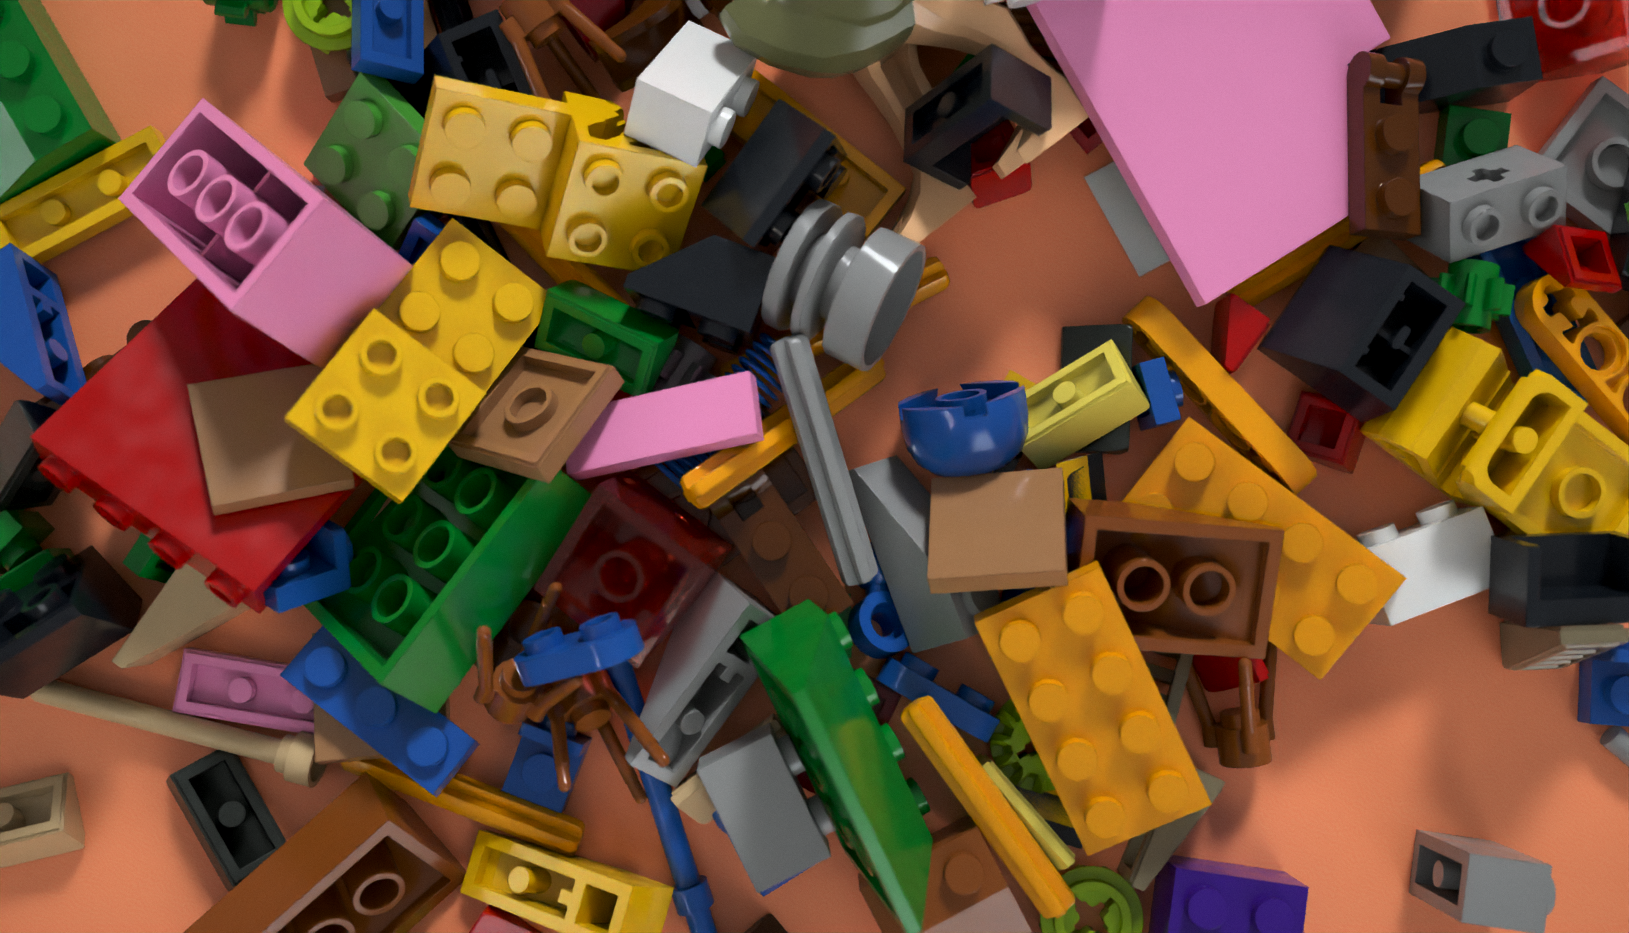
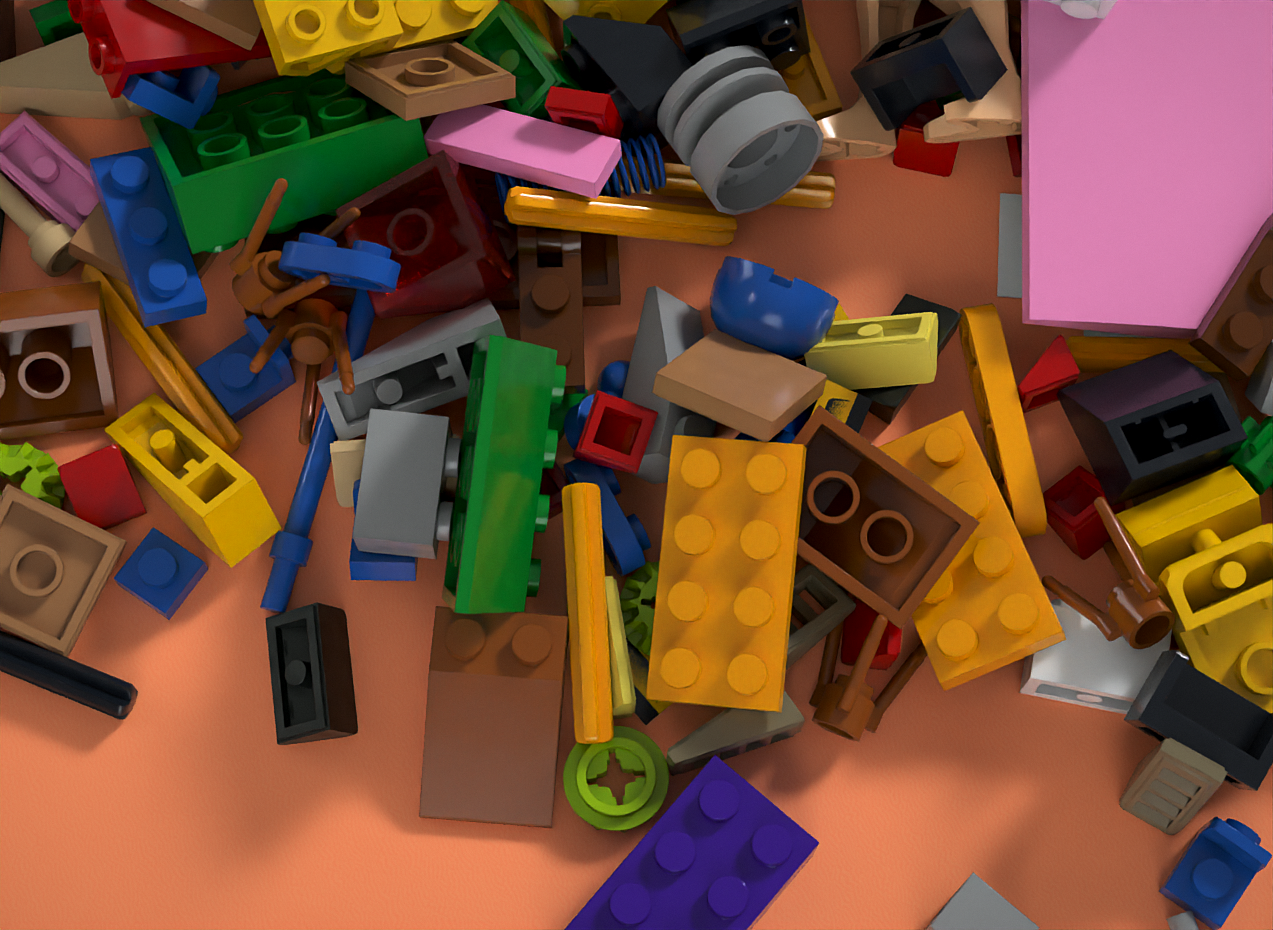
camera: 25 degrees right, 15 degrees down
(699, 363) = (584, 111): none -> red tile
(824, 459) = (635, 255): light grey axle -> none
(912, 639) = (615, 433): none -> red slope
(1162, 392) = (950, 385): blue plate -> none
(1453, 515) = (1133, 604): none -> dark orange plant

